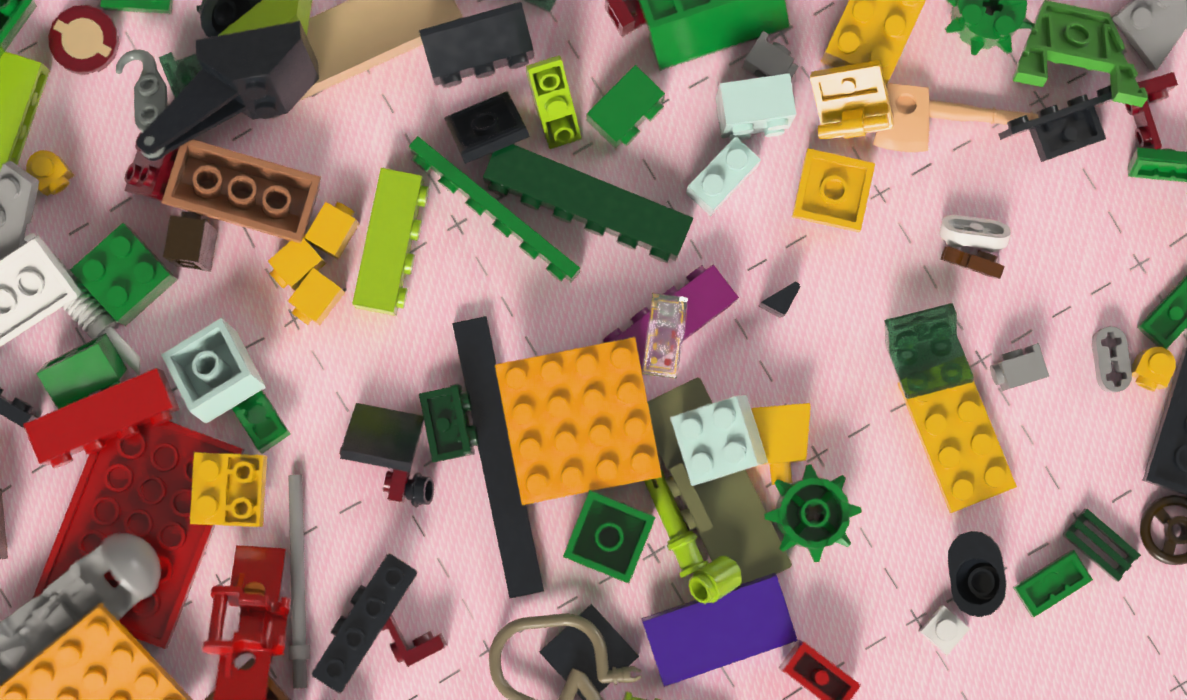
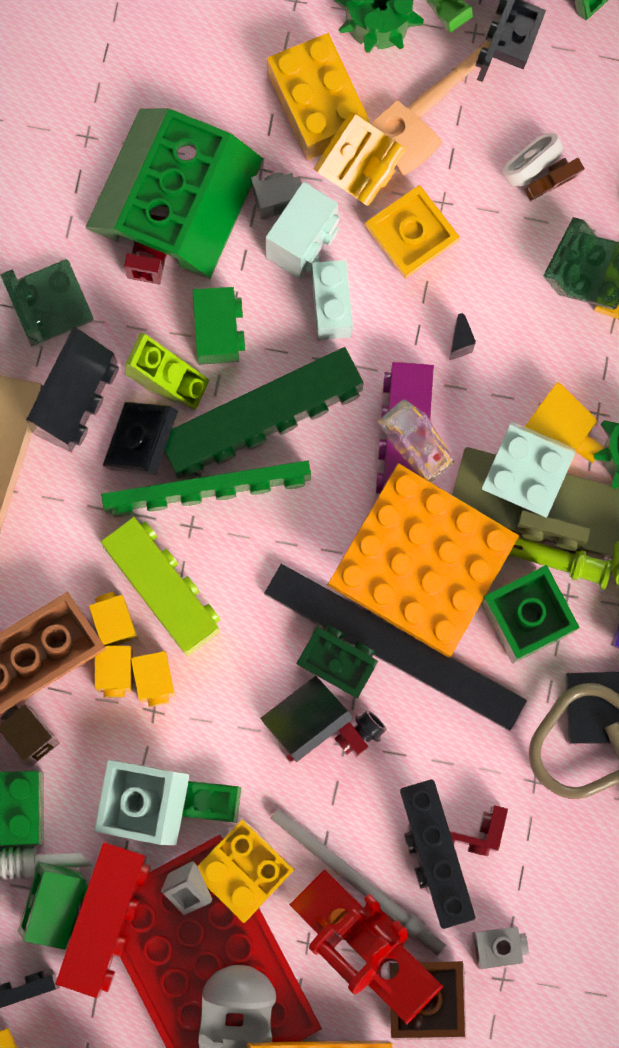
camera: 45 degrees left, 5 degrees down
(178, 459) = (186, 889): none -> light grey slope

